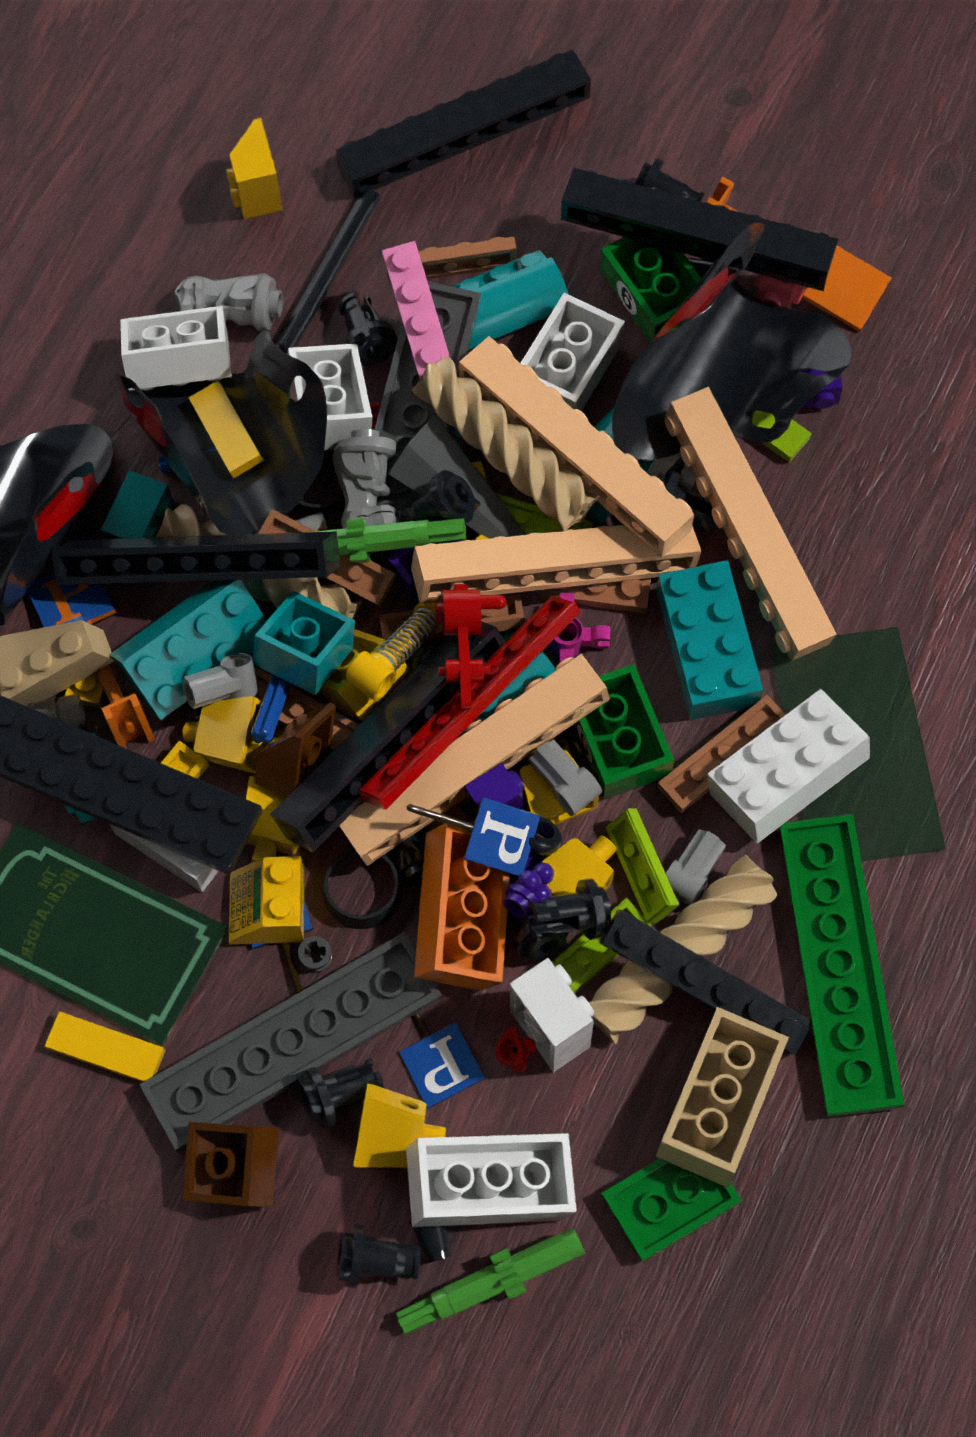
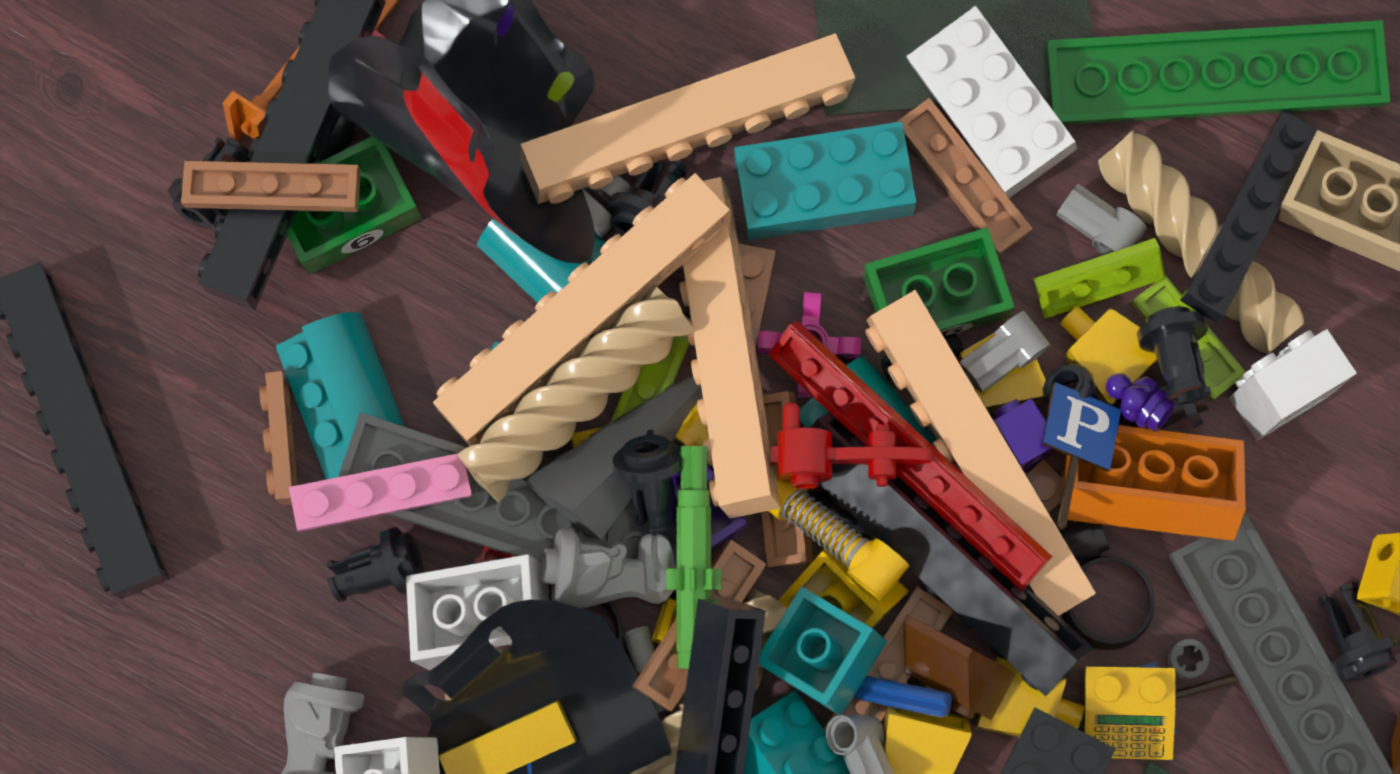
camera: 85 degrees left, 10 degrees up
(253, 174) = (139, 700): yellow slope -> none
(328, 270) = (279, 614): black axle -> none
(441, 1063) = (1318, 520): blue piece -> none
(505, 1049) = (1315, 443): red plate -> none
(575, 349) = (436, 312): white brick -> none
(652, 205) = (271, 186): none -> nougat plate

